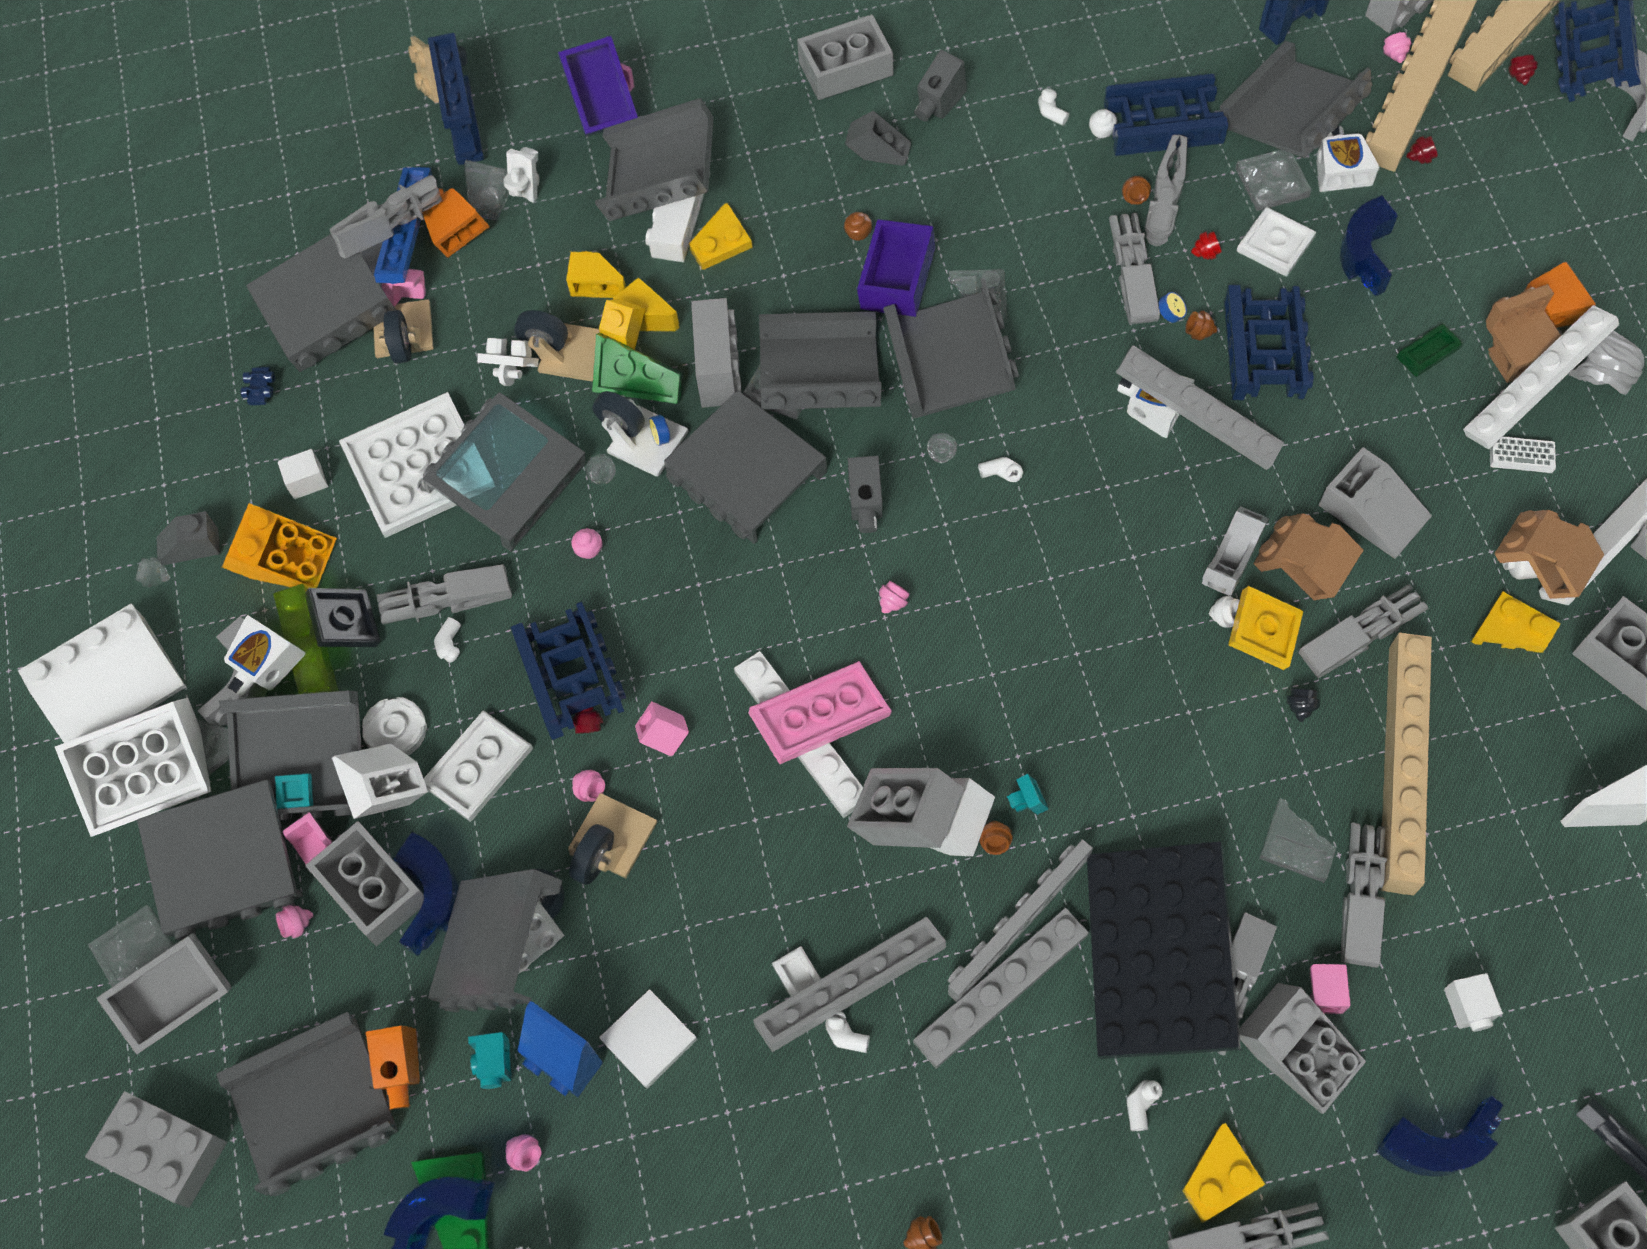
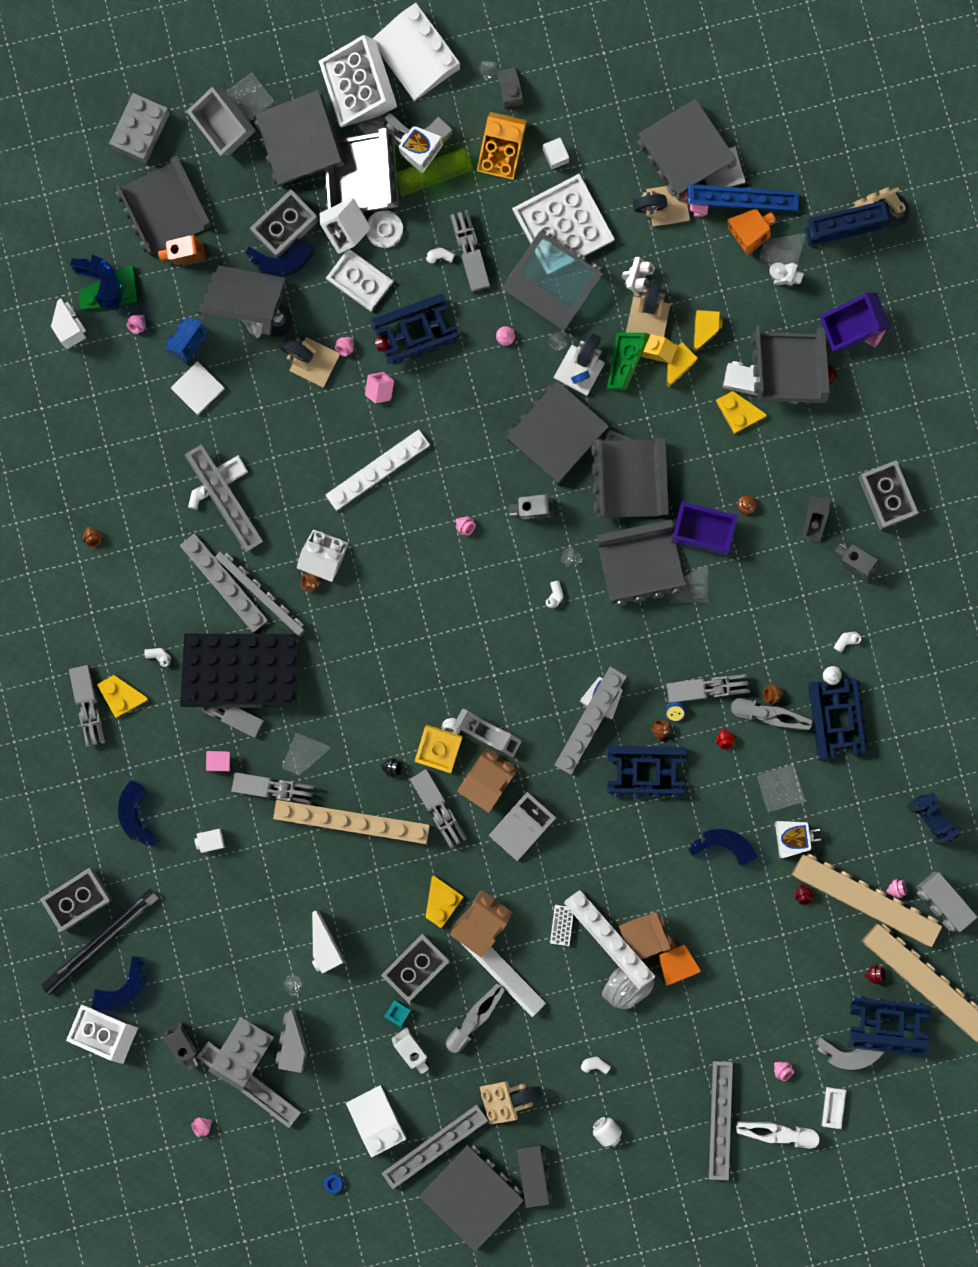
camera: 90 degrees right, 20 degrees up
(259, 385) = (621, 116): dark blue piece -> none
(293, 920) = (265, 185): bright pink plate -> none
(294, 791) = (338, 176): teal plate -> none
(307, 837) = (312, 189): bright pink panel -> none
(342, 617) = (452, 191): black tile -> none
(375, 223) = (734, 182): light grey arm -> none
(491, 1059) = (185, 303): teal brick -> none
(715, 351) = (637, 410): light grey piece -> none
(819, 712) = (387, 480): bright pink tile -> none
(905, 807) = (320, 527): light grey brick -> none
(1028, 796) = (334, 602): teal tile -> none
(1276, 241) = (731, 786): white tile -> none
(1292, 102) = (842, 807): dark grey panel -> none
(1301, 1045) = (187, 744): light grey slope -> none
(1429, 350) = (642, 877): dark green tile -> none

